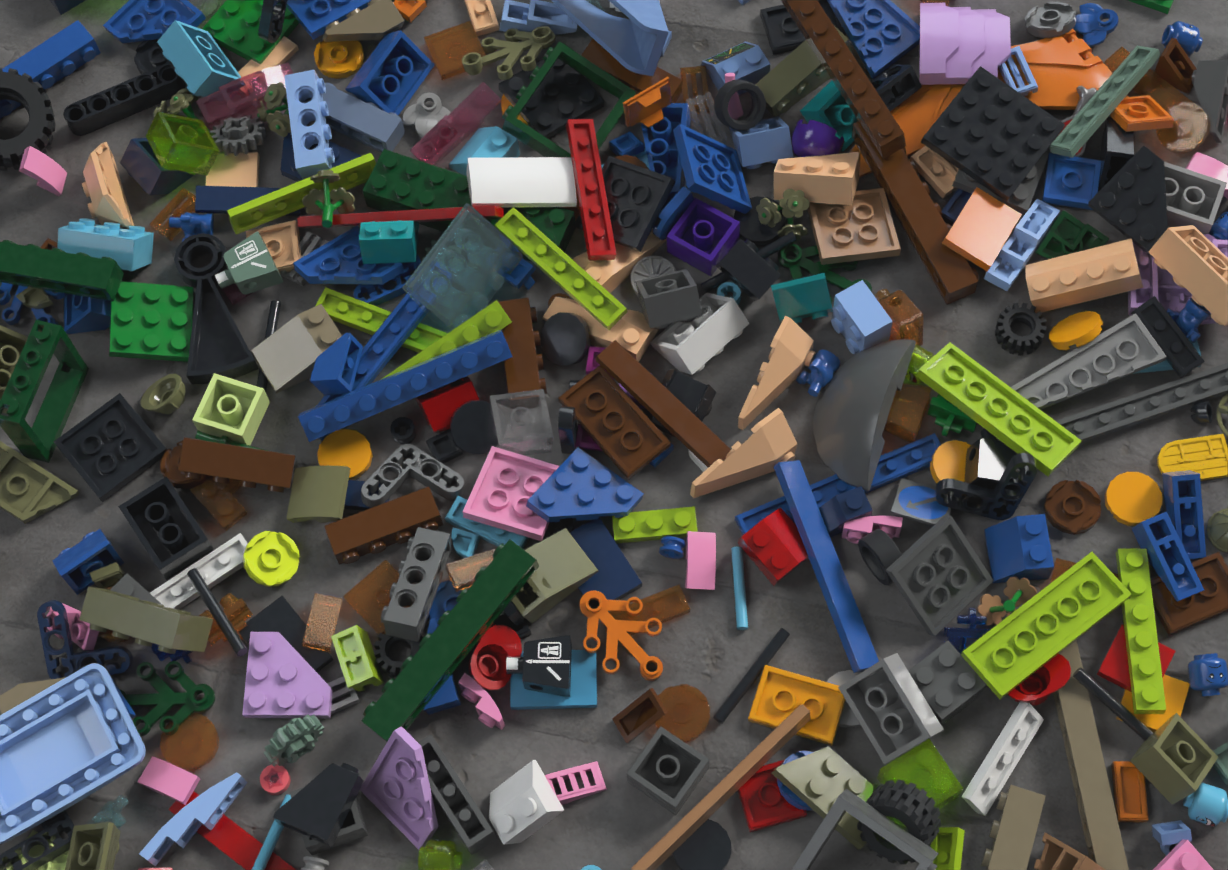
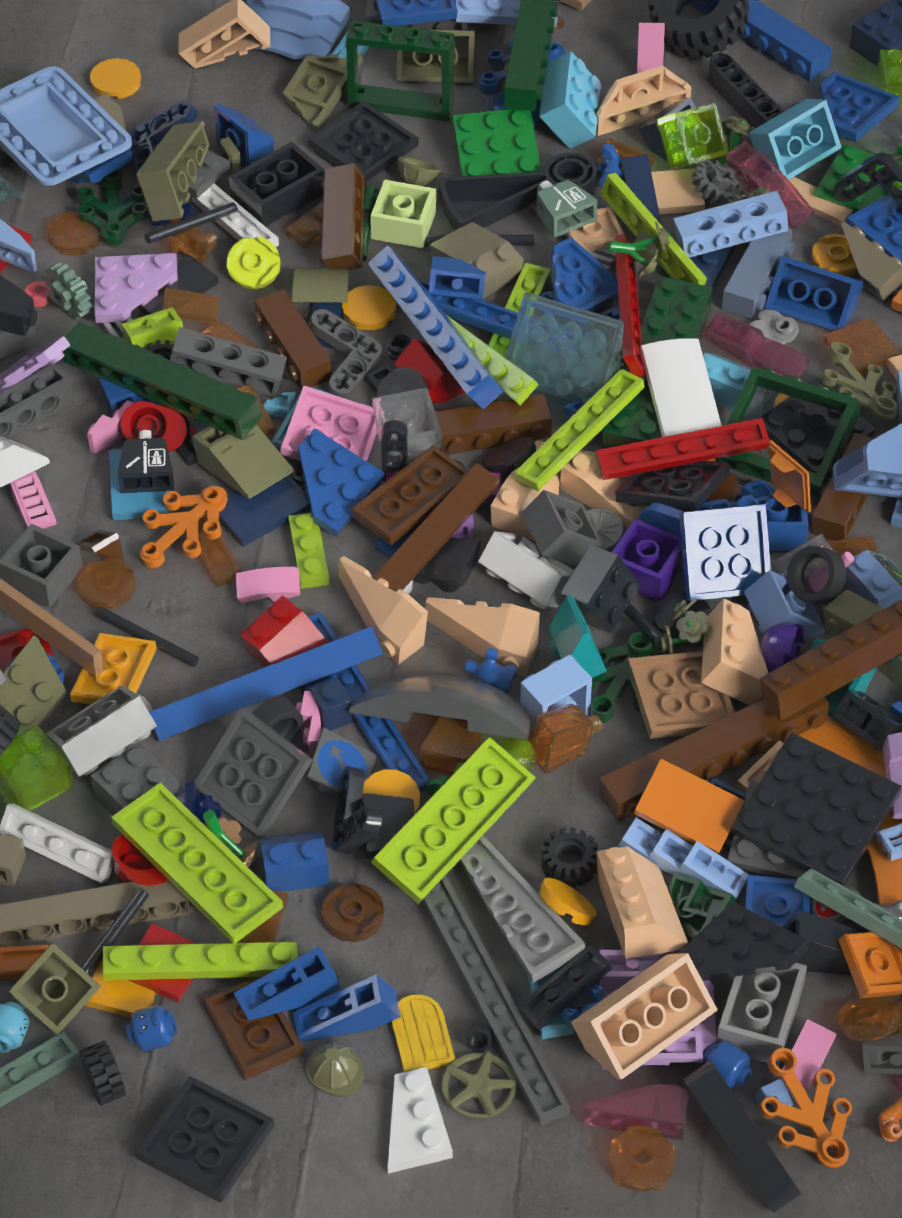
camera: 80 degrees right, 15 degrees down
(169, 780) = (34, 219): bright pink slope -> none
(388, 241) = (598, 291): teal slope -> none
(672, 547) = (281, 559): blue bush -> none
(739, 588) = (226, 623): medium azure bar -> none
(1133, 498) = (364, 959): light orange tile -> none

